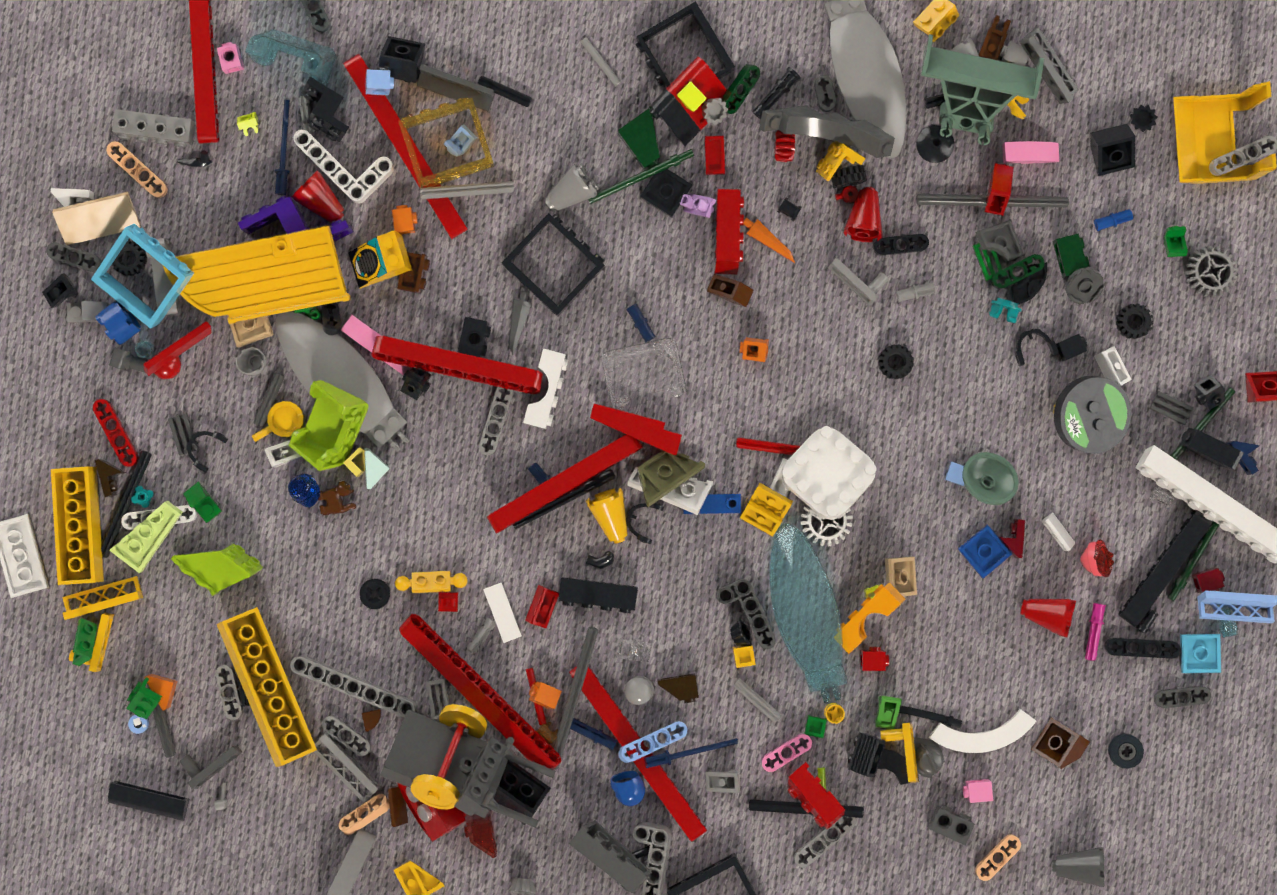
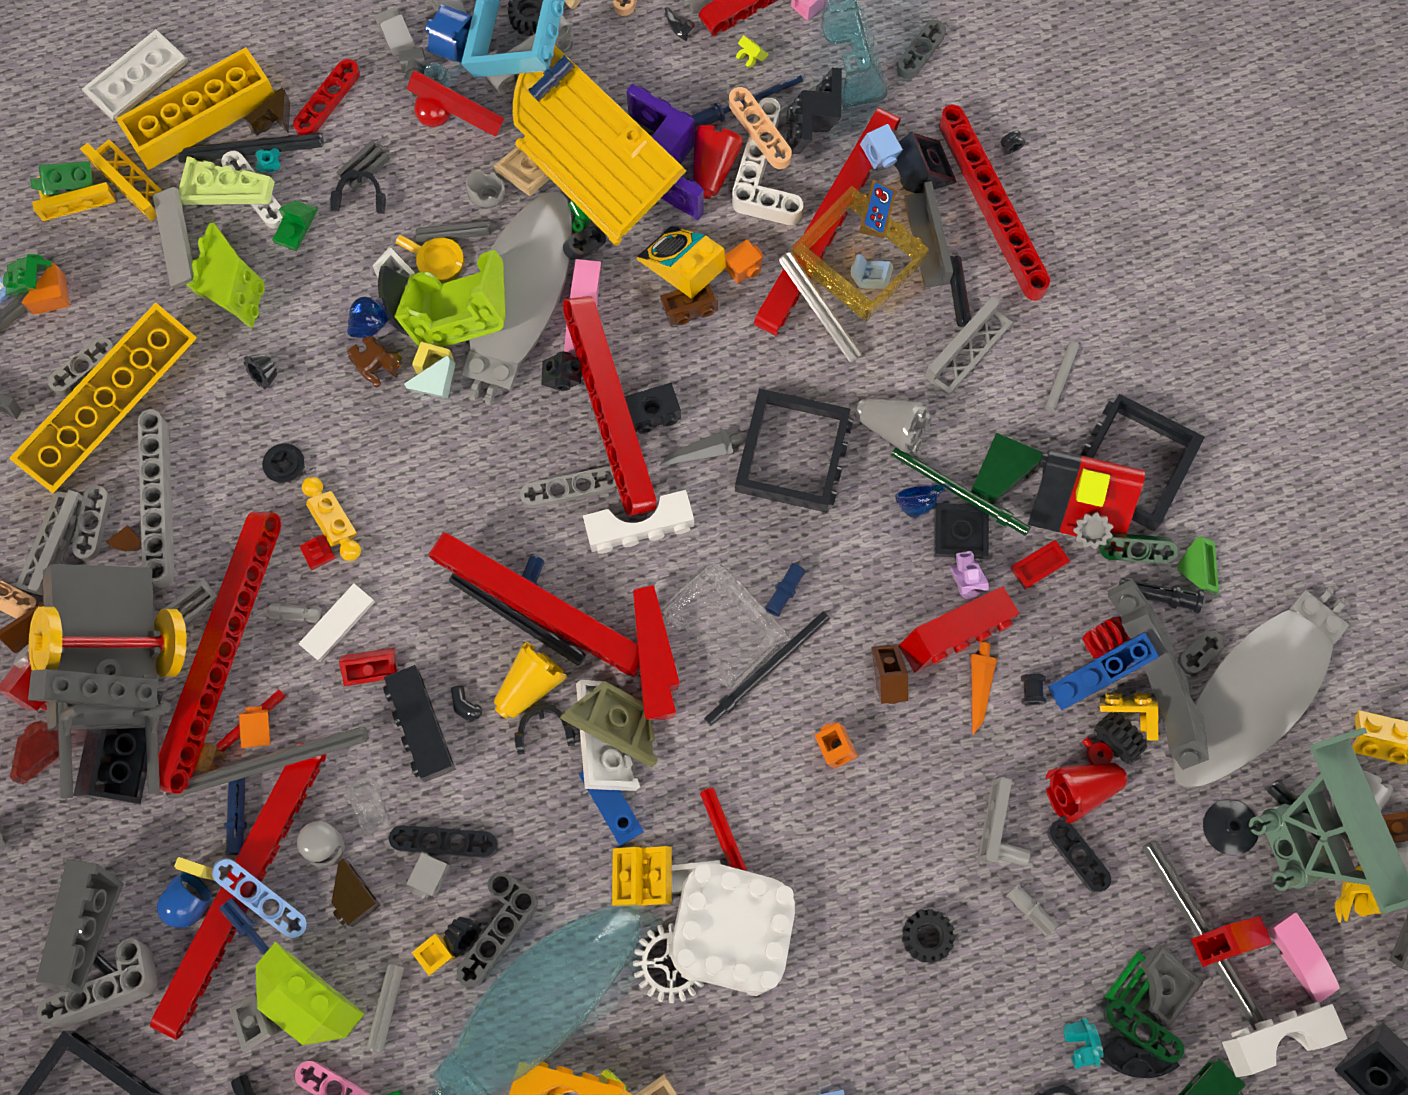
camera: 60 degrees right, 15 degrees down
(88, 359) = (394, 31): none -> light grey slope
(168, 587) = (174, 237): none -> light grey tile
(201, 274) = (551, 78): none -> dark blue pin
(297, 464) = (390, 289): none -> black tile
(300, 576) = (260, 369): none -> black piece
(316, 151) = (755, 130): none -> light nougat beam
(427, 114) = (877, 210): none -> slope
(448, 23) = (994, 213): none -> red beam
(541, 112) = (958, 344): none -> light grey fence
(614, 770) = (194, 868): none -> light yellow tile
(631, 205) = (918, 499): none -> clear blue hat
(681, 618) = (443, 844): none -> black beam
(691, 398) = (728, 703): none -> black bar
(695, 636) = (428, 876): none -> light grey brick
(725, 746) = (301, 999): none -> lime wedge
(772, 57) = (1200, 565): none -> bright green slope
(804, 162) = (1103, 671): none -> blue slope
(1064, 216) = (1257, 1049): none -> white arch

